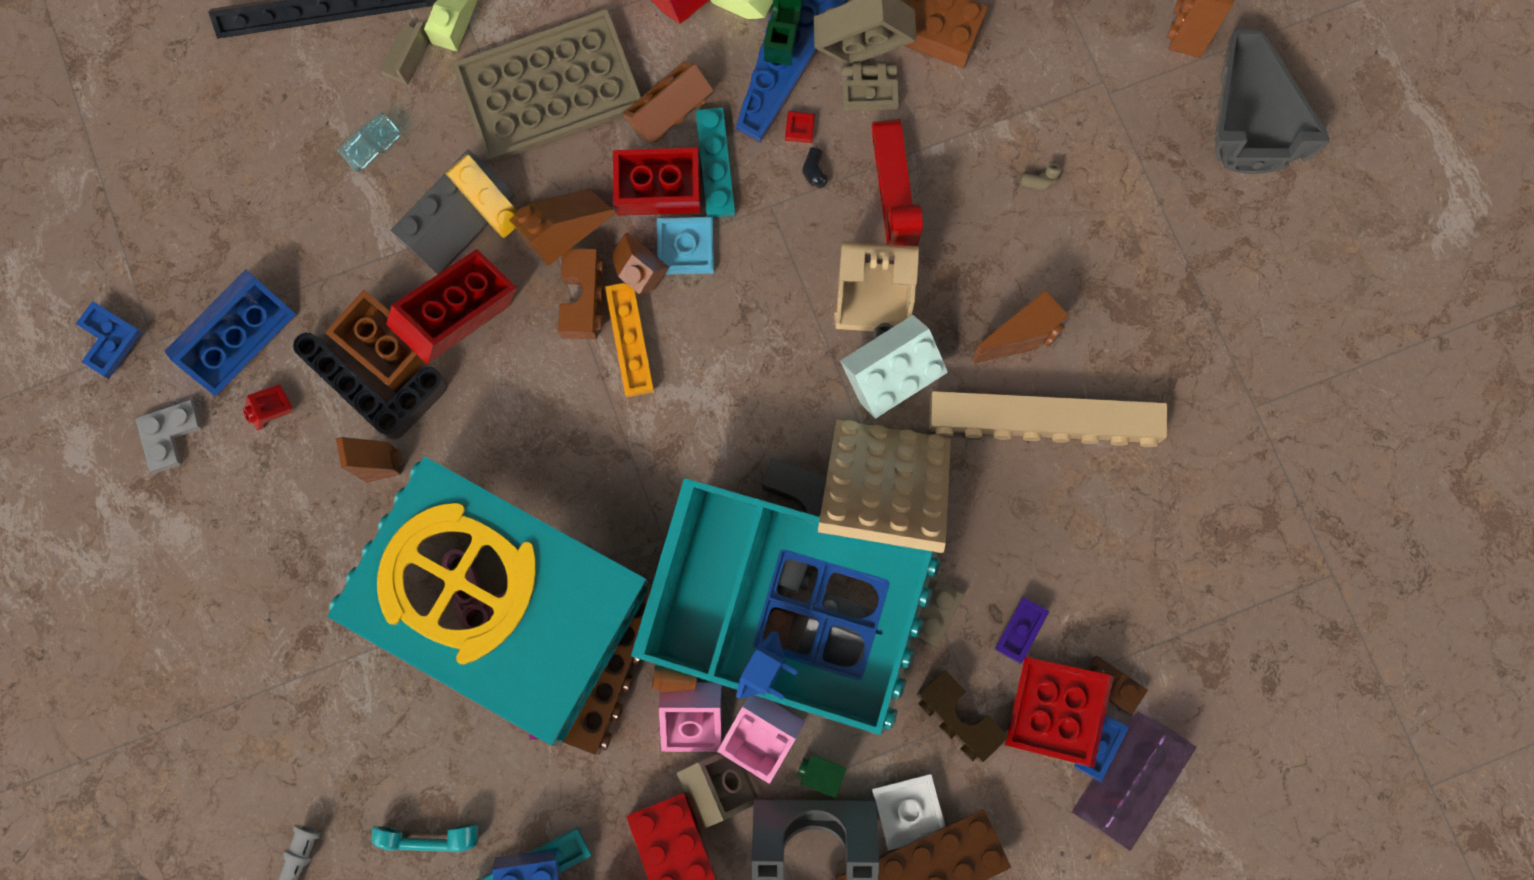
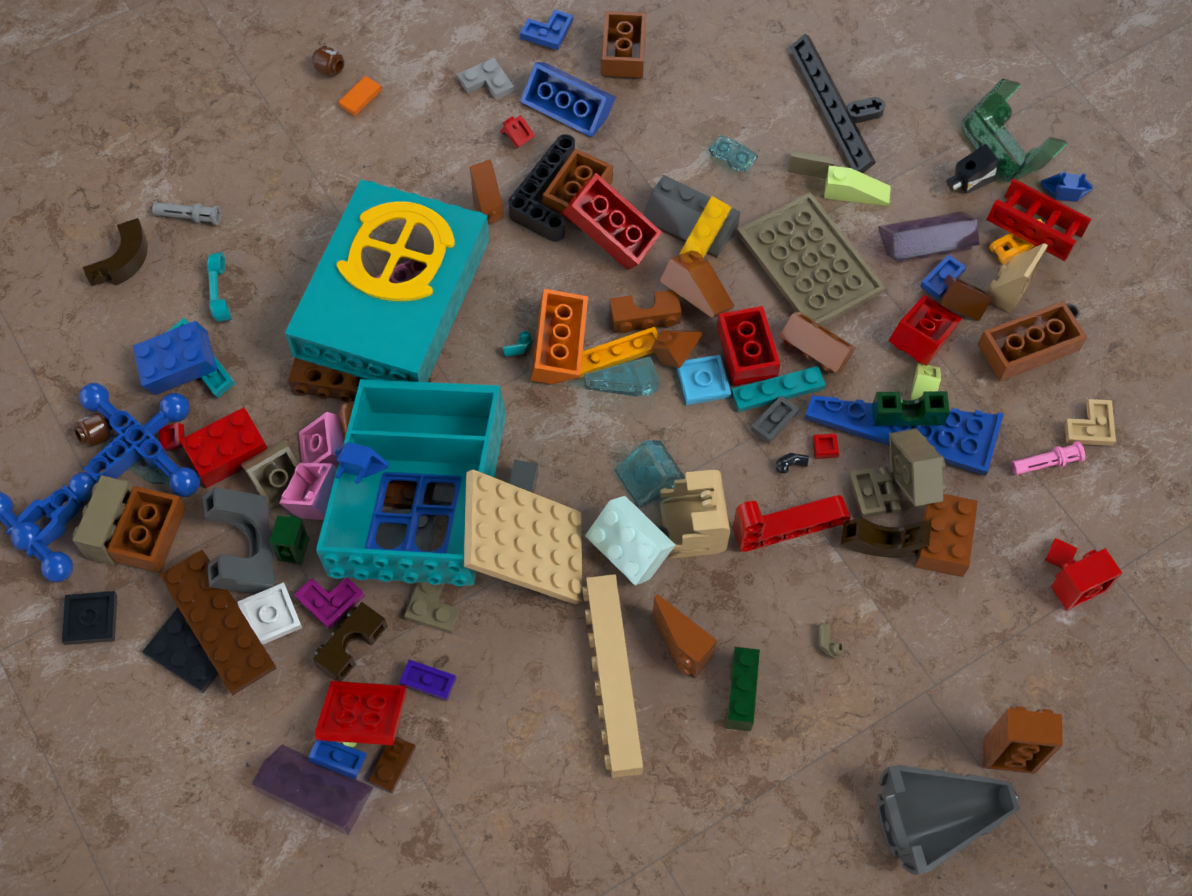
camera: 75 degrees right, 15 degrees down
(82, 647) = (328, 61): none -> reddish brown head
(150, 610) = (360, 95): none -> orange tile
(162, 242) = (623, 44): none -> dark orange brick
(595, 454) = (521, 346): none -> teal arm
(598, 403) = (559, 337): none -> orange slope
(672, 327) = (629, 379): none -> clear light blue slope
(757, 174) = (774, 419): none -> dark grey plate
(802, 330) = (648, 472): none -> clear light blue slope
(910, 740) = (329, 606): none -> magenta plate
(935, 83) = (885, 541): none -> dark brown arch
(1106, 284) = (742, 689): none -> dark green arch

